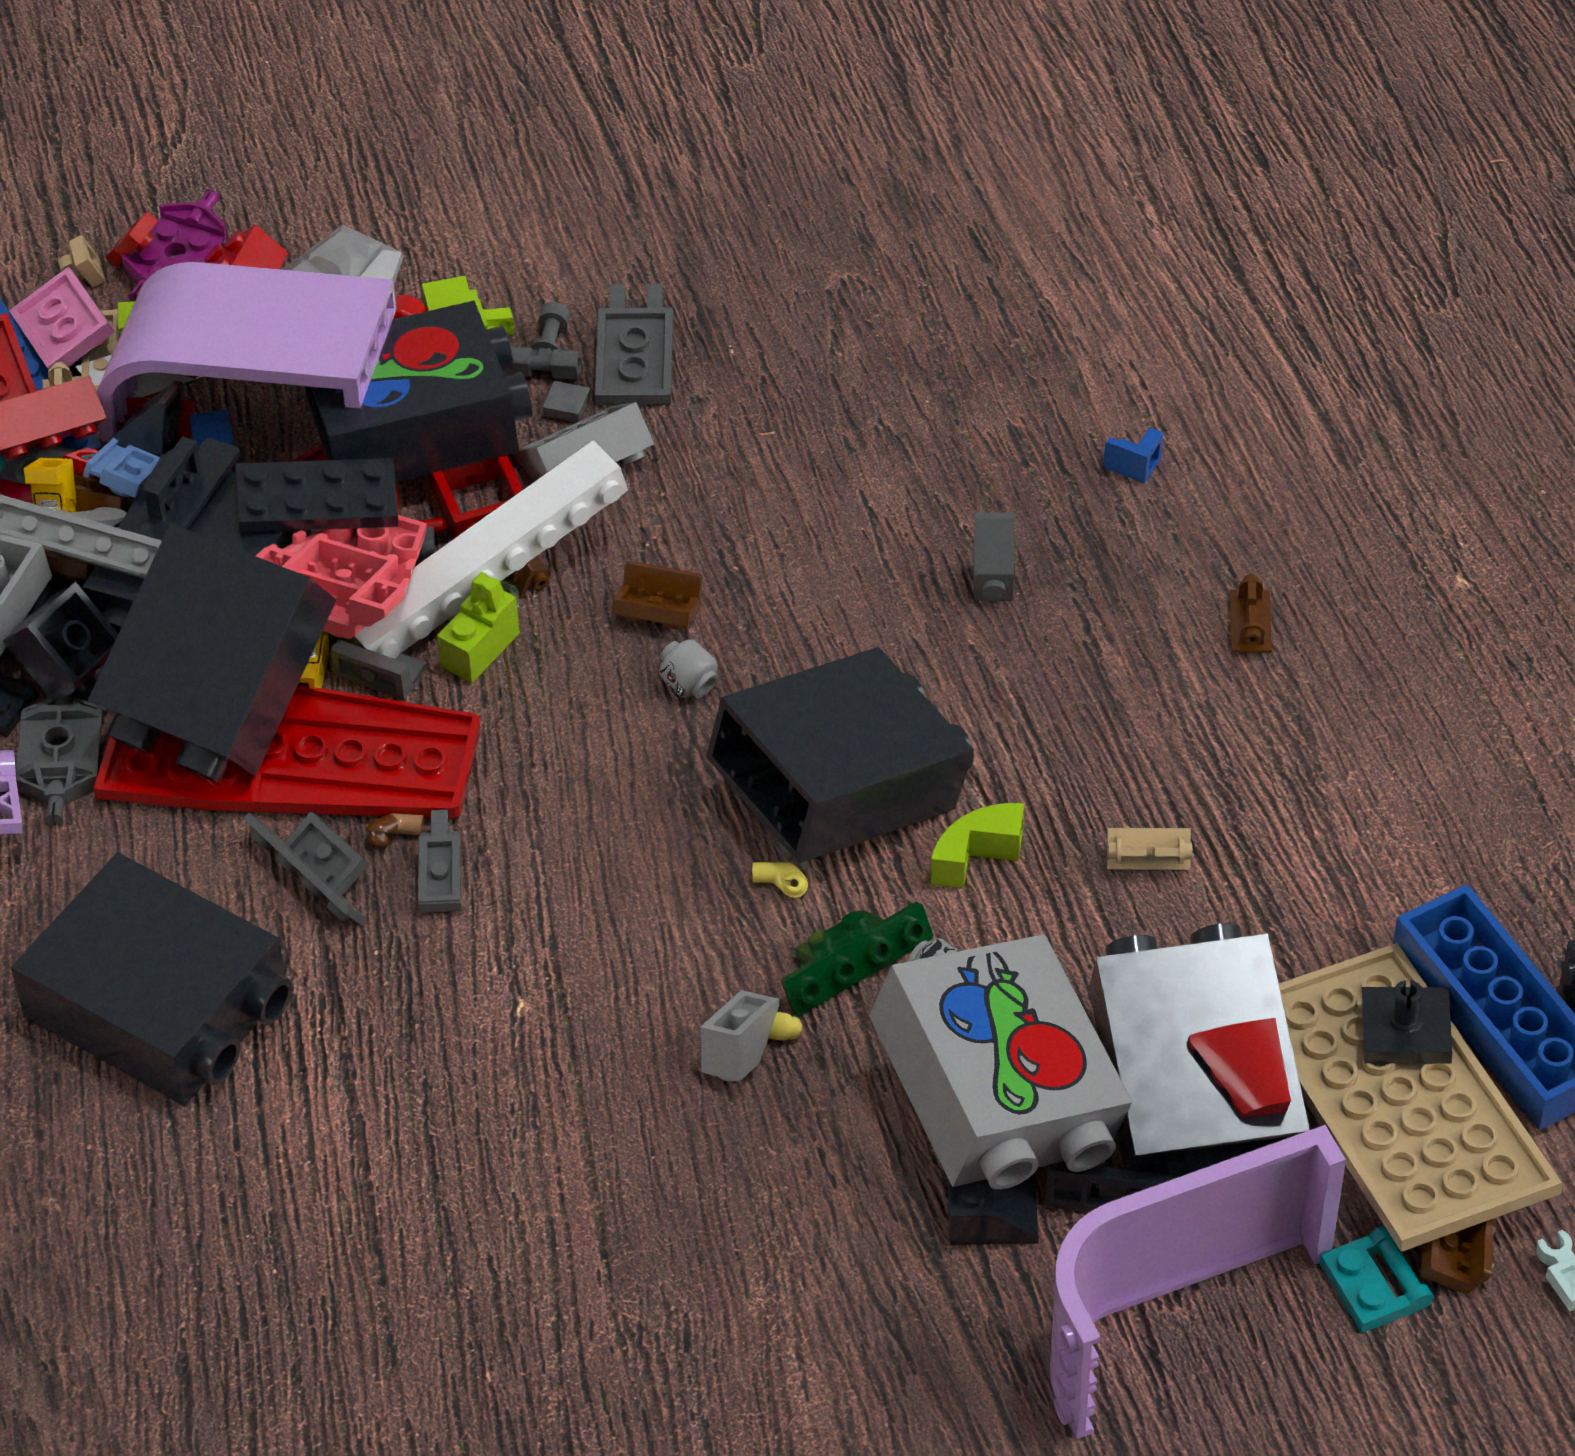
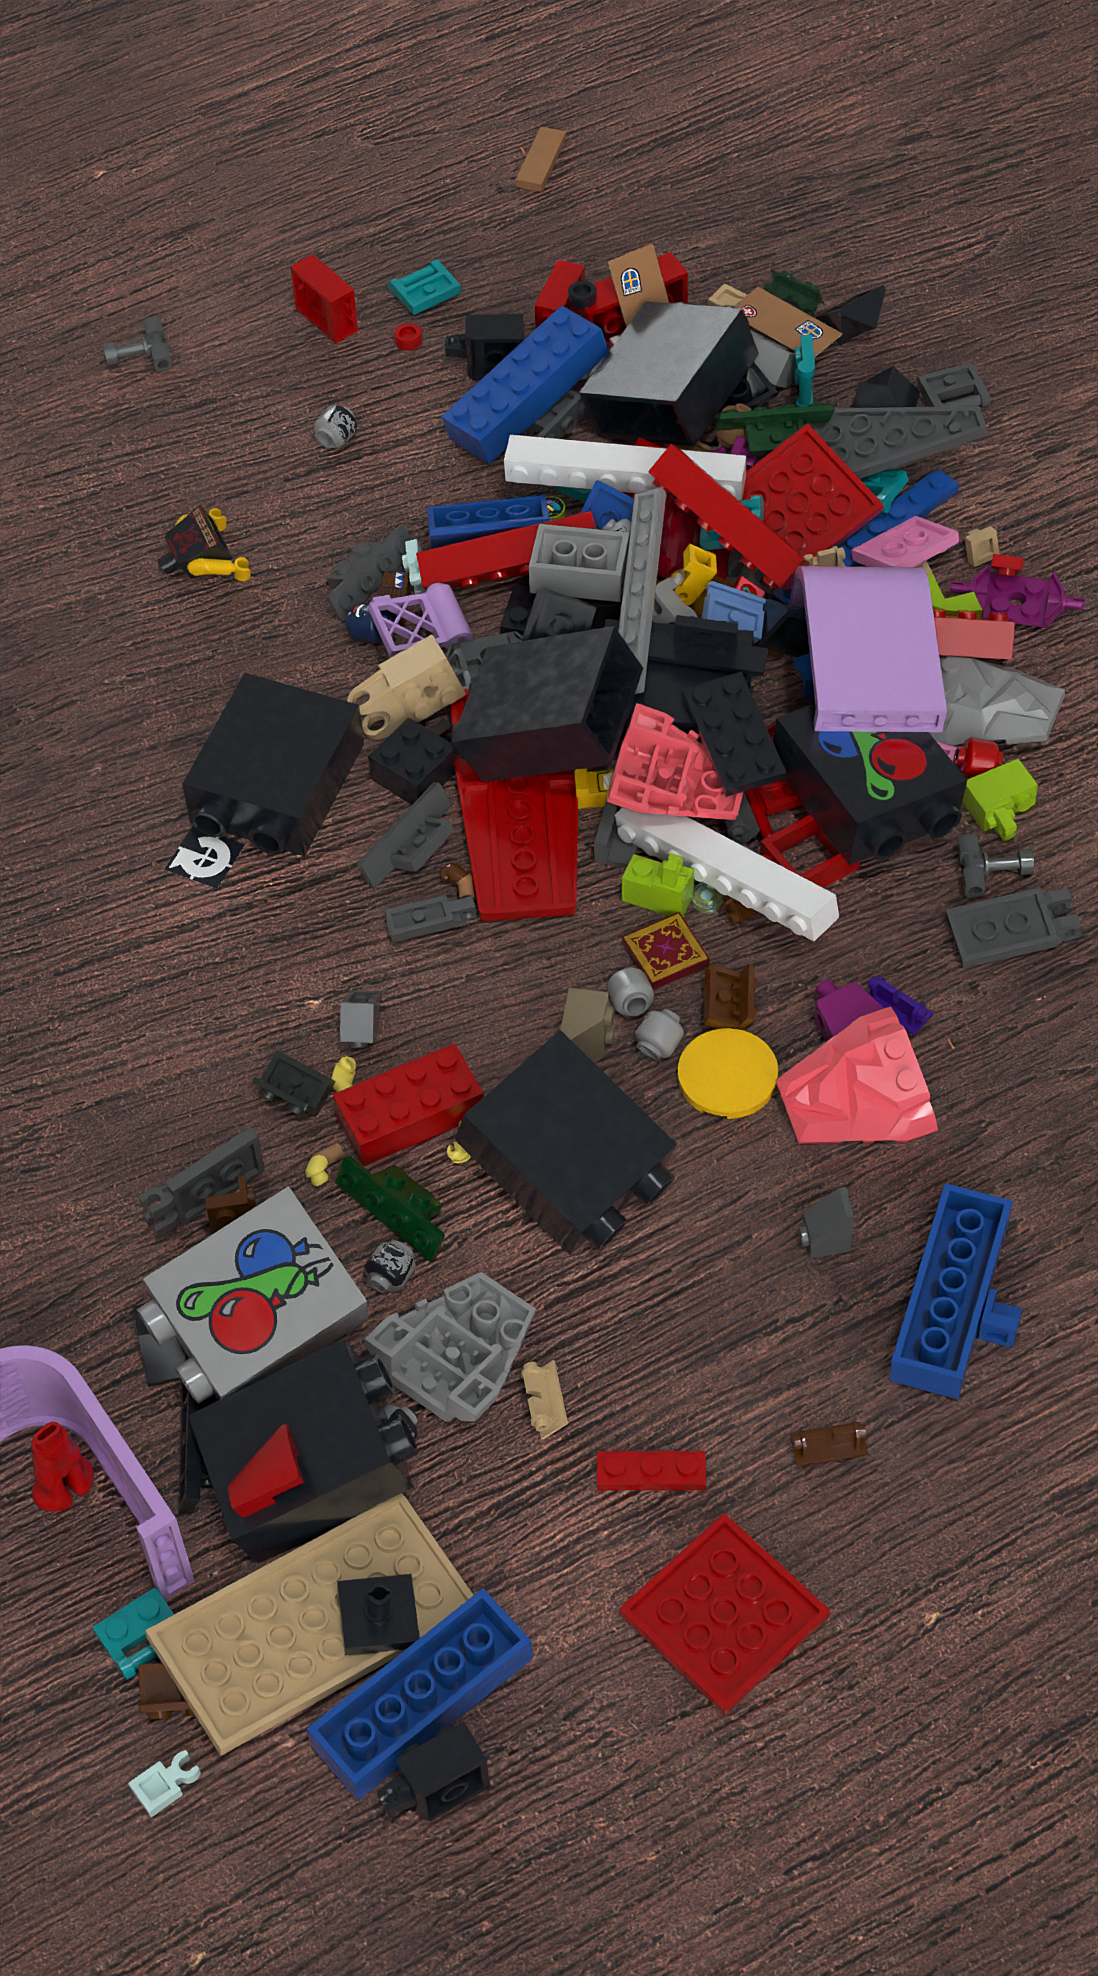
camera: 80 degrees right, 5 degrees up
(89, 801) = (408, 686): none -> tan brick
(195, 838) = (414, 759): none -> black hinge
(250, 1096) = (204, 858): none -> sticker
(564, 650) = (666, 950): none -> tile
(566, 402) = (936, 893): flat silver tile -> none
(571, 948) = (360, 1017): none -> slope
(616, 430) = (882, 914): light grey slope -> none
(620, 685) = (630, 992): none -> light grey head
(651, 1028) = (295, 1083): none -> pearl dark grey bracket
(656, 987) = (344, 1073): none -> light yellow arm
(672, 727) = (589, 1021): none -> dark tan slope
(711, 461) = (909, 1012): none -> dark purple hinge
(717, 502) = (841, 1007): none -> magenta torso
(719, 916) = (407, 1104): none -> red brick
(737, 1035) = (294, 1138): light grey slope -> none
(754, 623) = (727, 1073): none -> yellow tile
(786, 1127) = (213, 1175): none -> dark grey tile
(818, 496) = (859, 1087): none -> coral wedge
(836, 1096) = (229, 1207): none -> reddish brown bracket
(985, 832) = (513, 1256): lime brick -> none
(1075, 901) = (455, 1348): none -> light grey wedge
(1098, 477) = (950, 1291): none -> blue brick
(1162, 1317) = (55, 1458): none -> red piece
(1252, 776) = (651, 1470): none -> red plate
(1437, 738) = (724, 1613): none -> red plate

